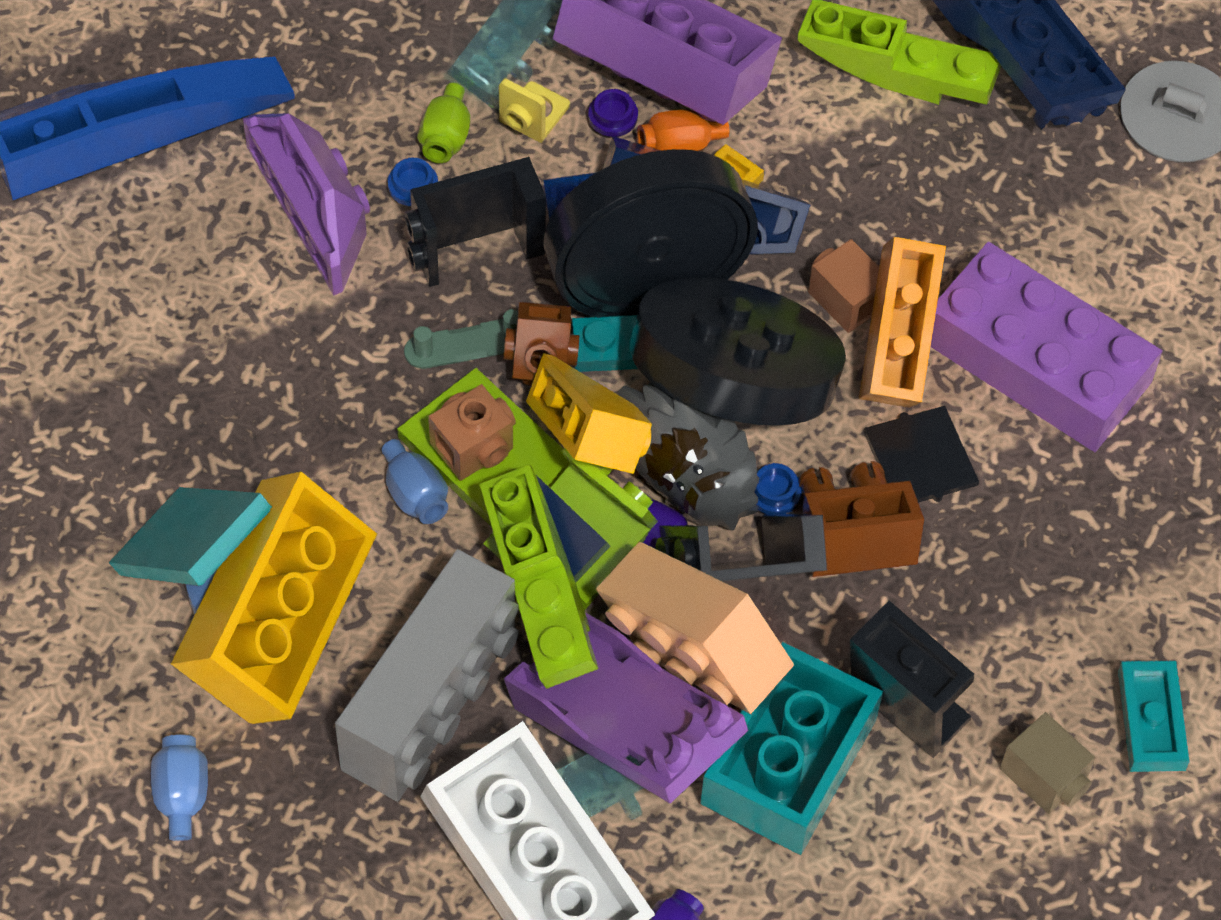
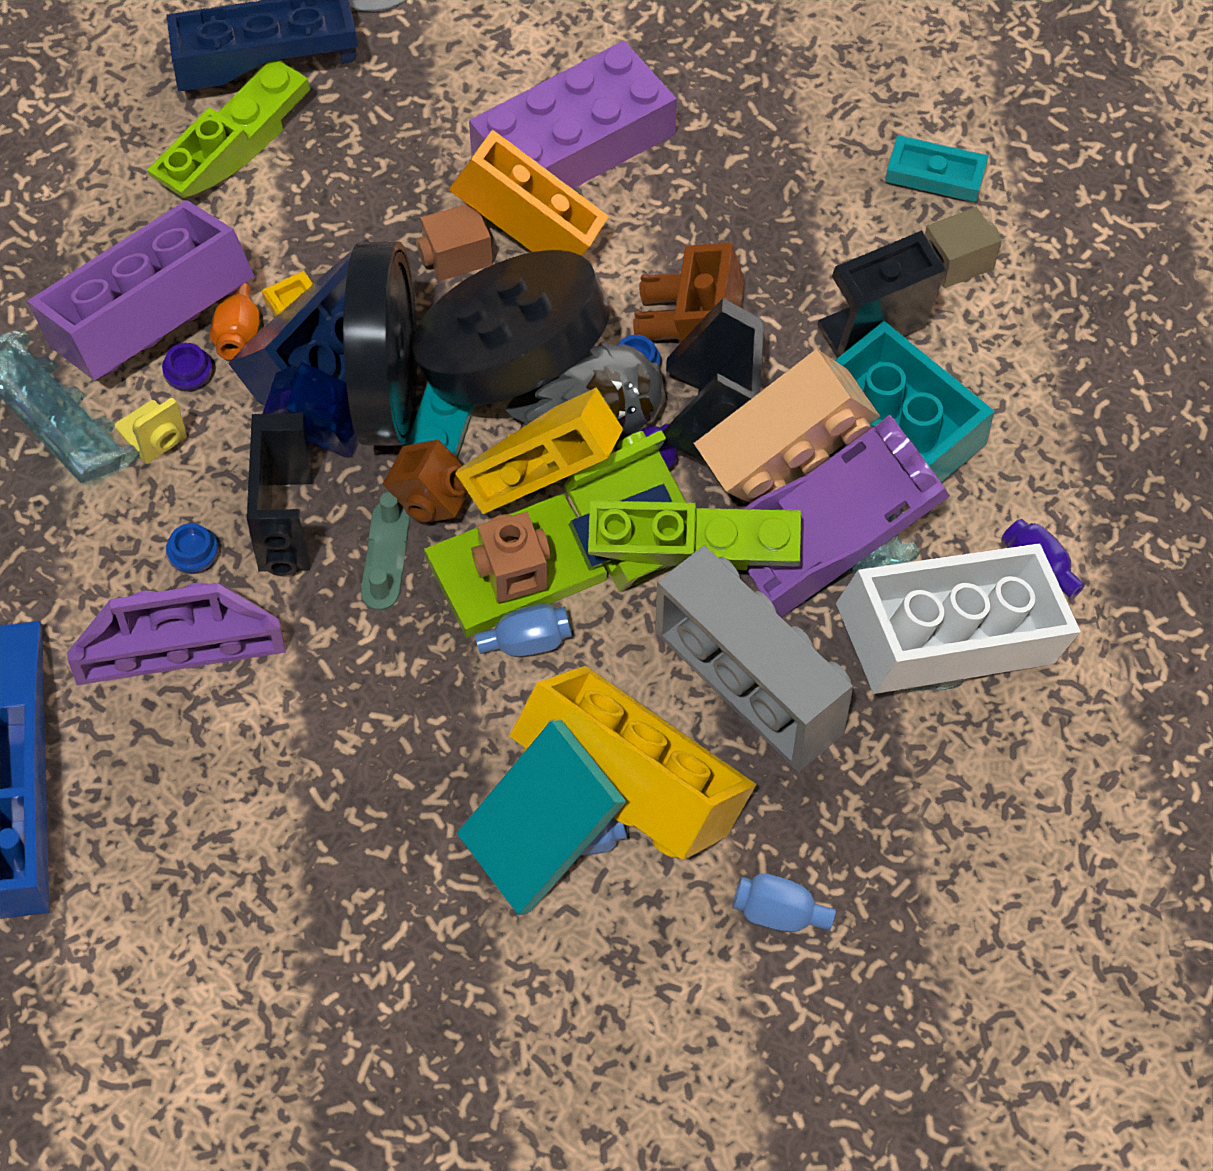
camera: 70 degrees left, 0 degrees up
(444, 125) = (137, 503): lime plant -> none
(923, 451) = (636, 247): black piece -> none

